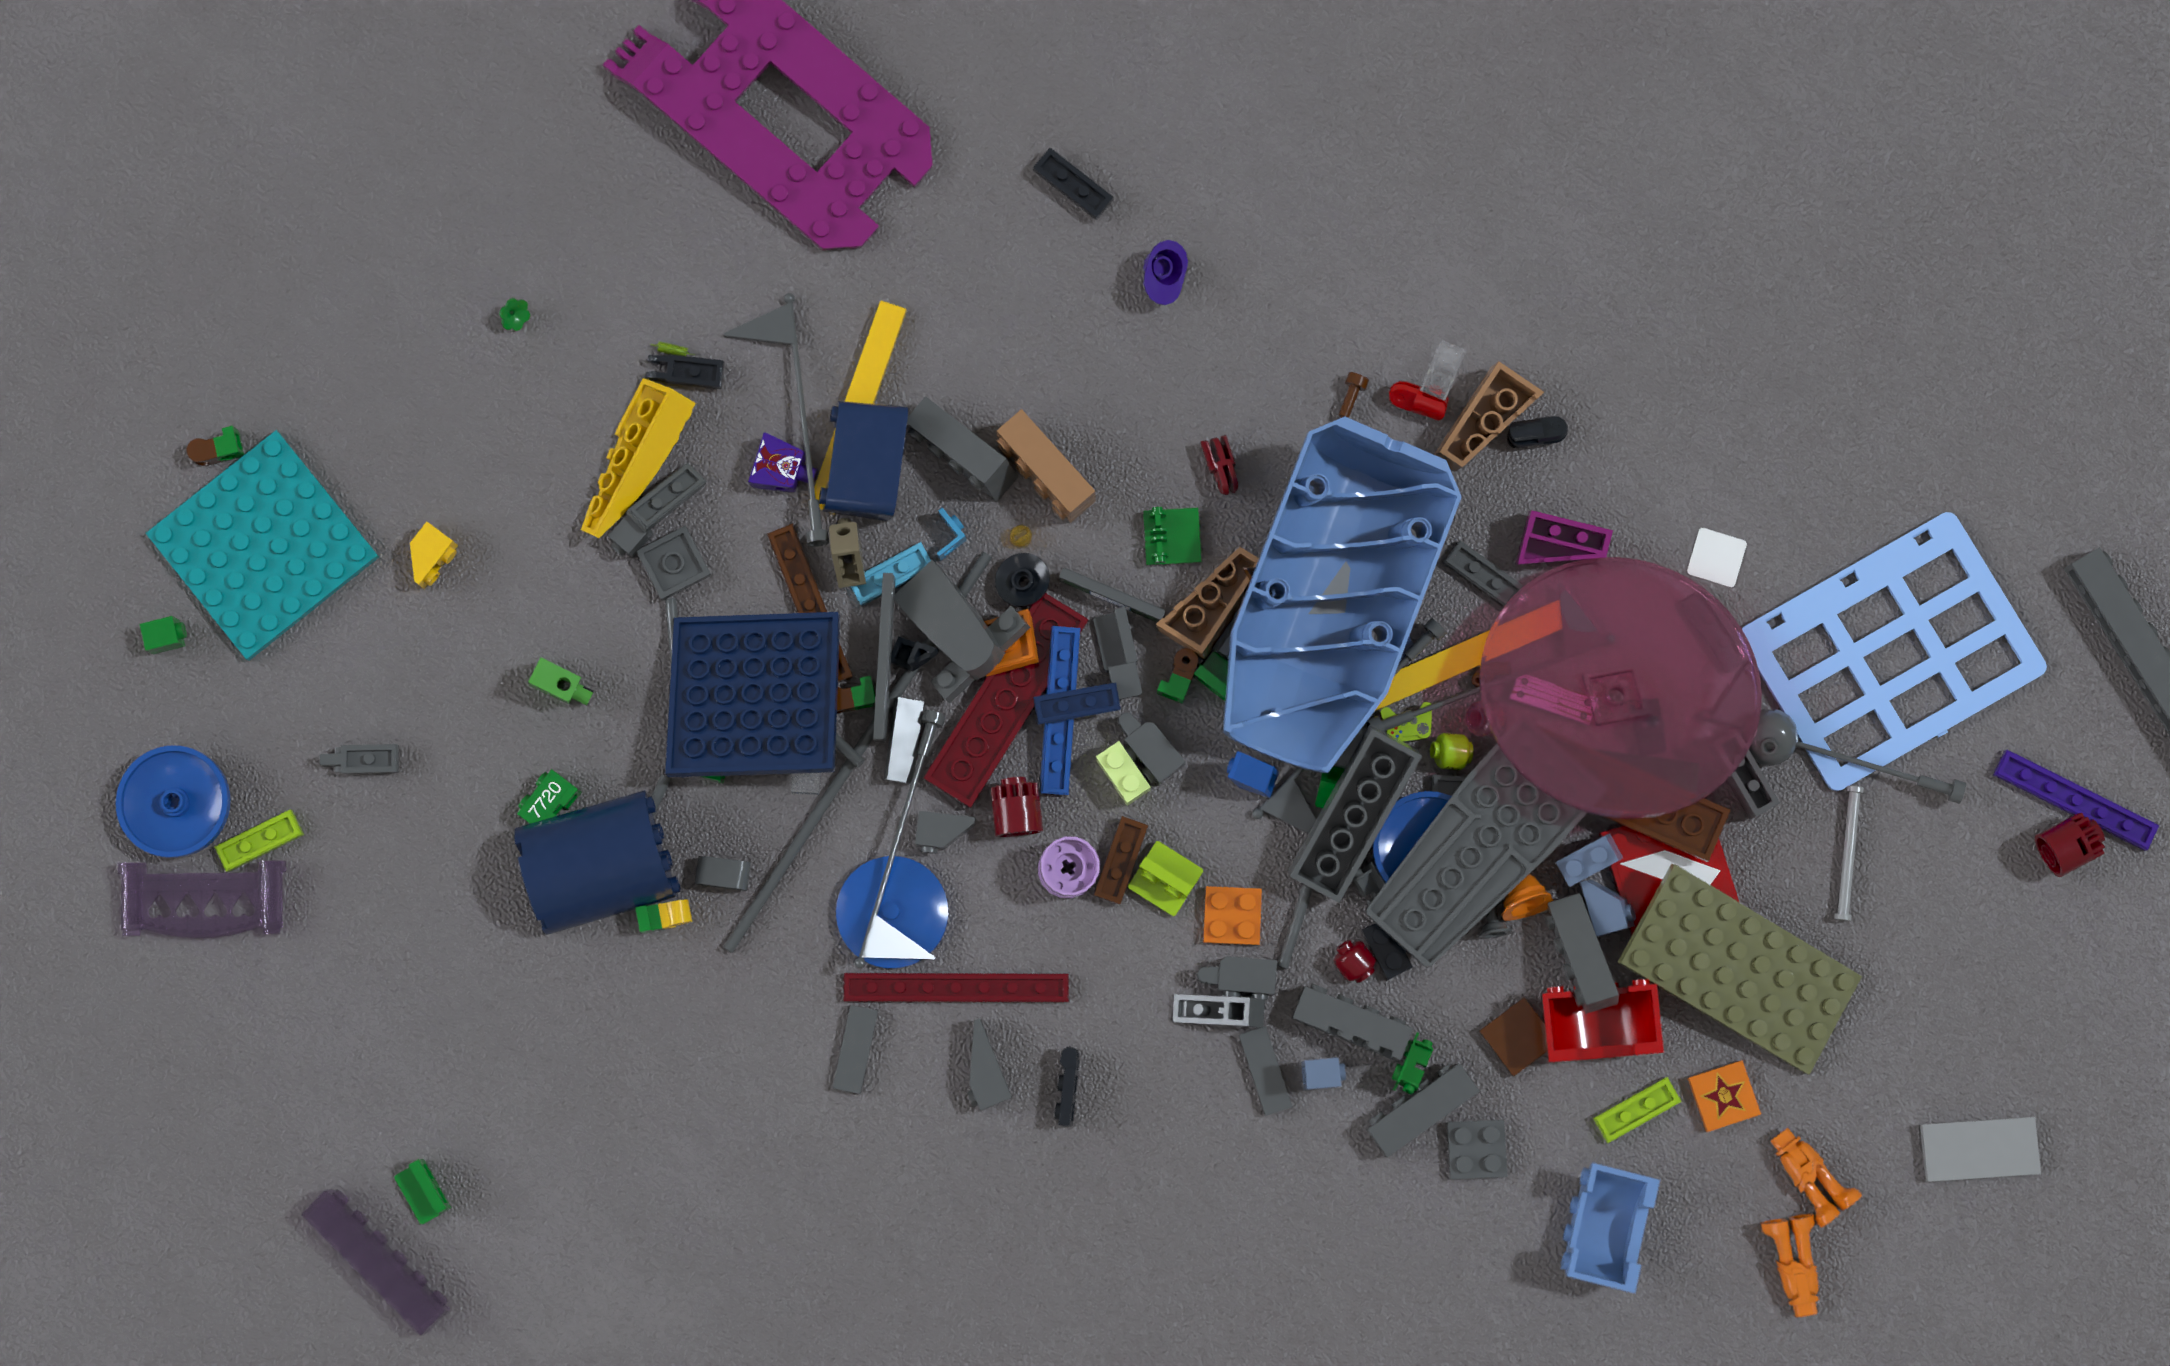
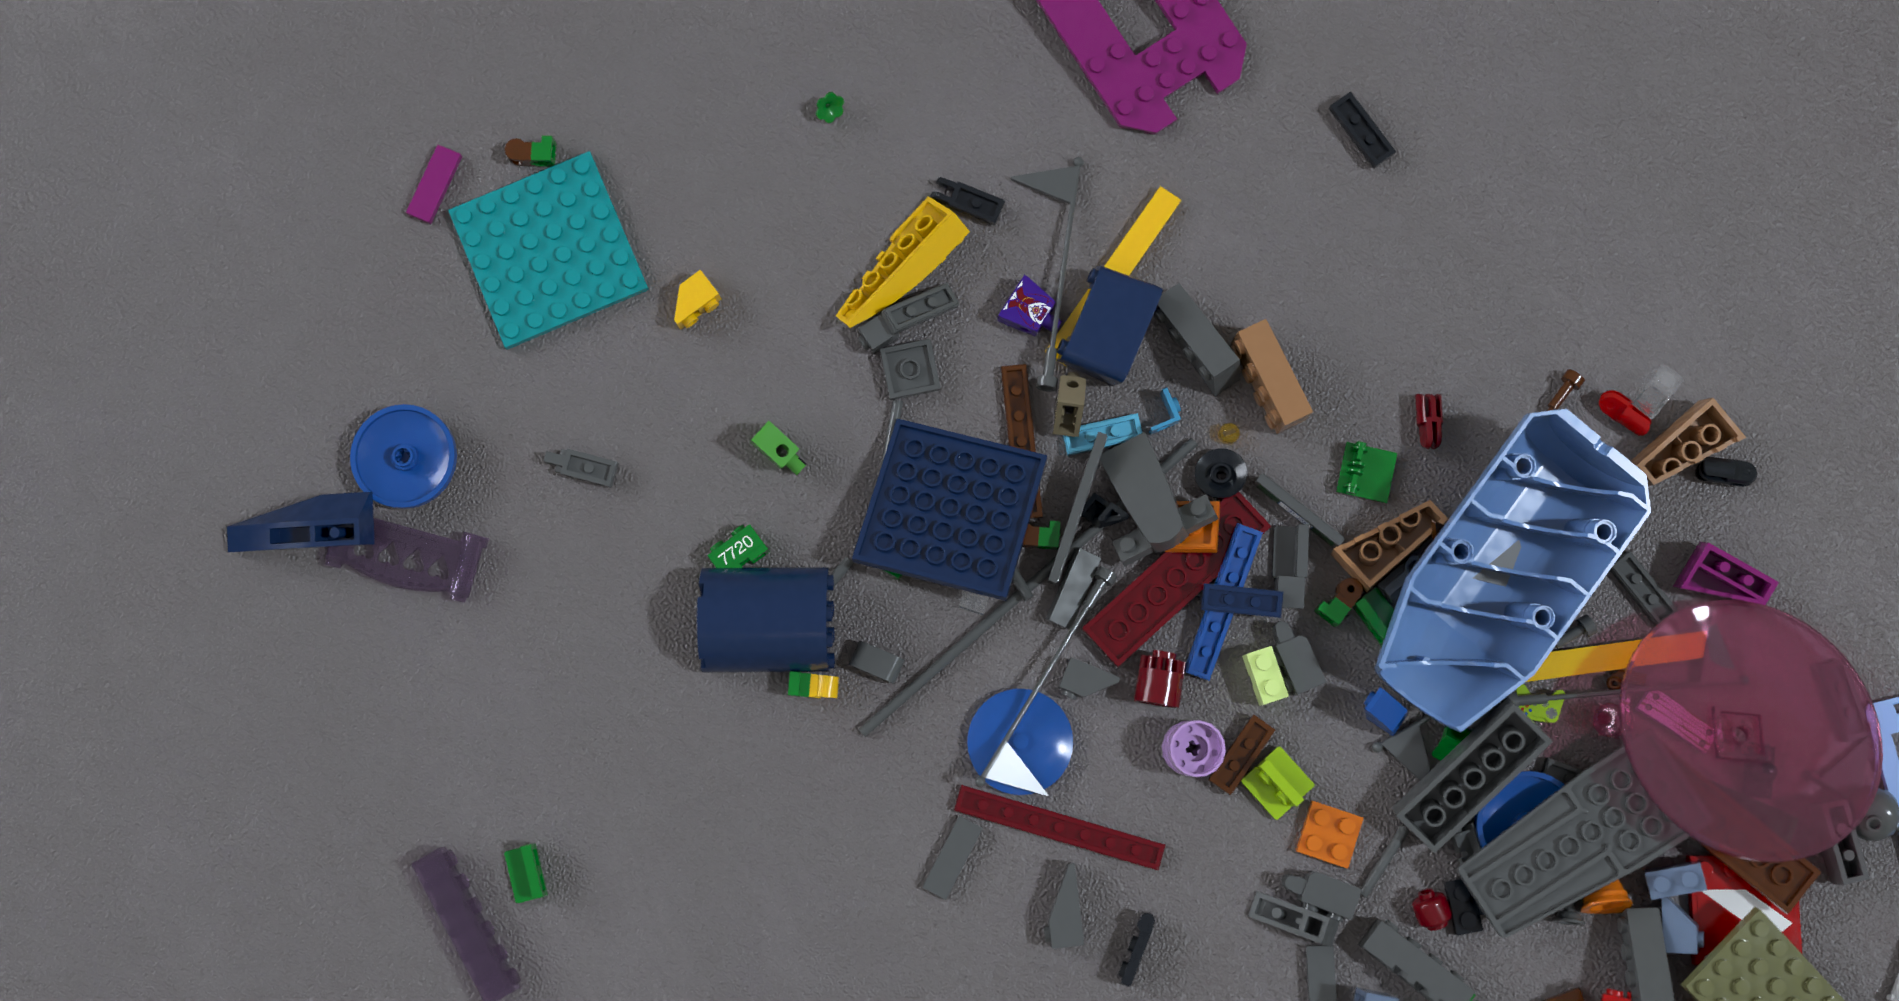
camera: 15 degrees right, 0 degrees up
(93, 899) = (312, 523): none -> dark blue wedge
(123, 510) = (434, 184): none -> magenta tile
(163, 634) = (437, 305): green brick -> none
(259, 840) = (470, 513): lime tile -> none
(672, 349) = (958, 176): lime piece -> none
(1165, 272) = (1425, 231): dark purple piece -> none
(1451, 751) = (1572, 741): lime head -> none
(1716, 557) = (1860, 632): white sticker -> none

